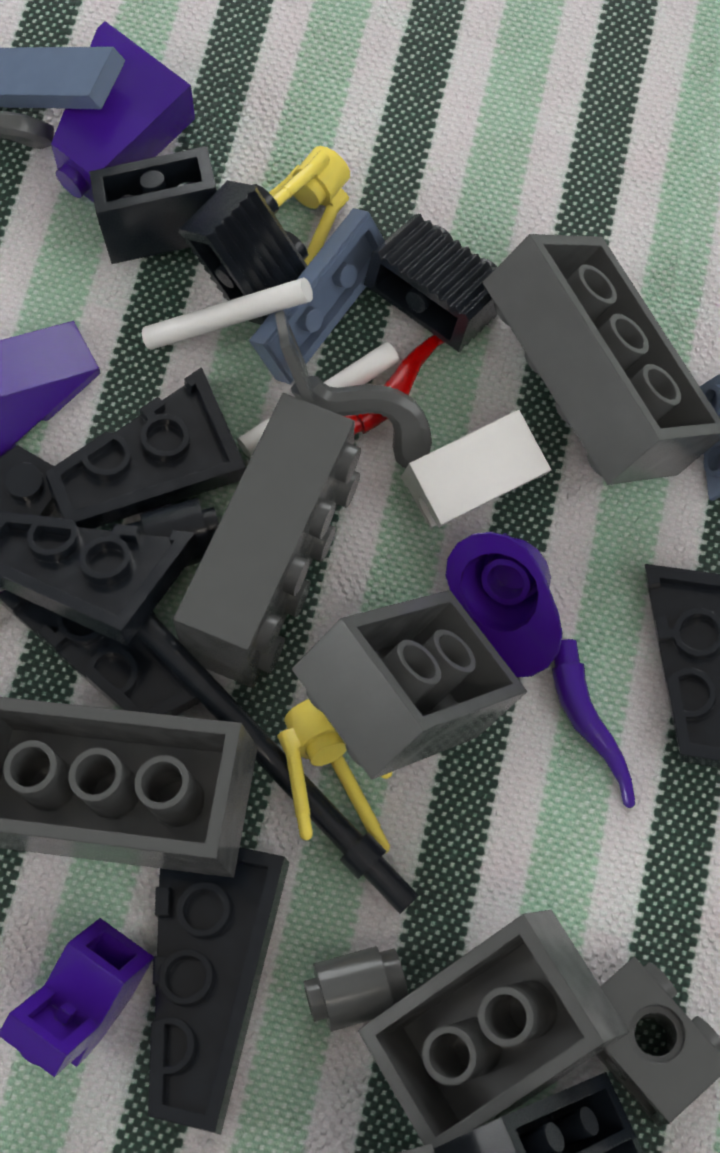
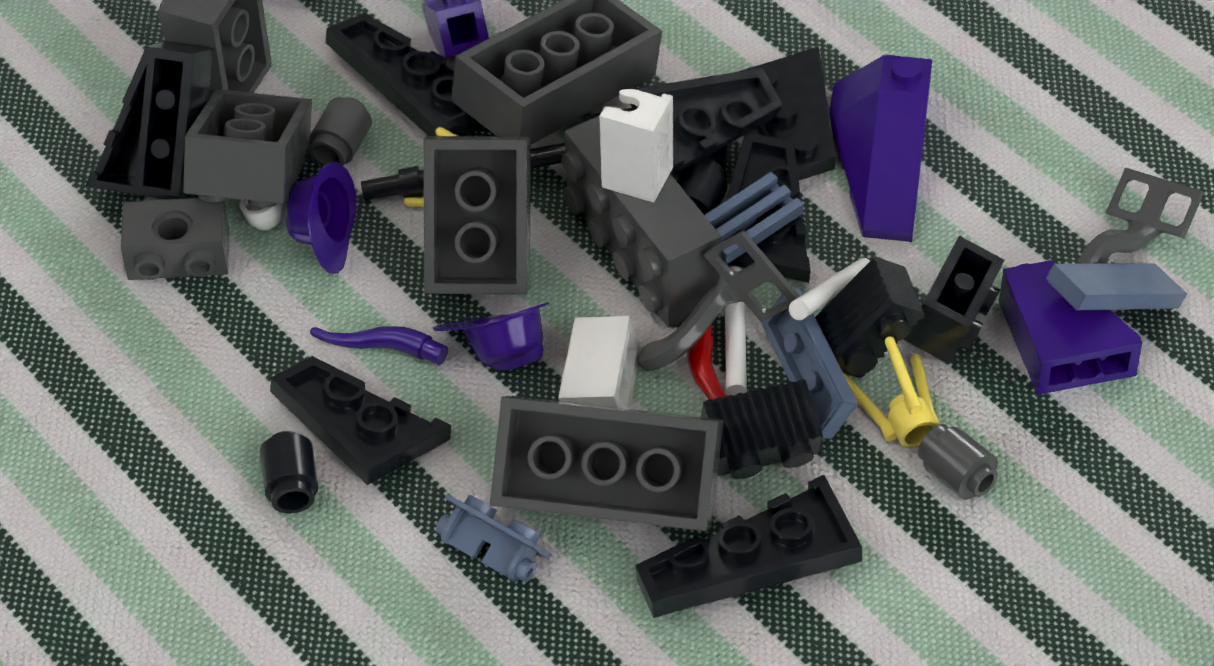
camera: 130 degrees right, 20 degrees down
(190, 436) = (759, 199): none -> sand blue tile
(259, 489) = (637, 144): none -> white hinge
(340, 112) = (958, 461): none -> dark grey brick
(501, 890) = (323, 214): none -> dark purple piece
(531, 189) = (774, 547): none -> black wing

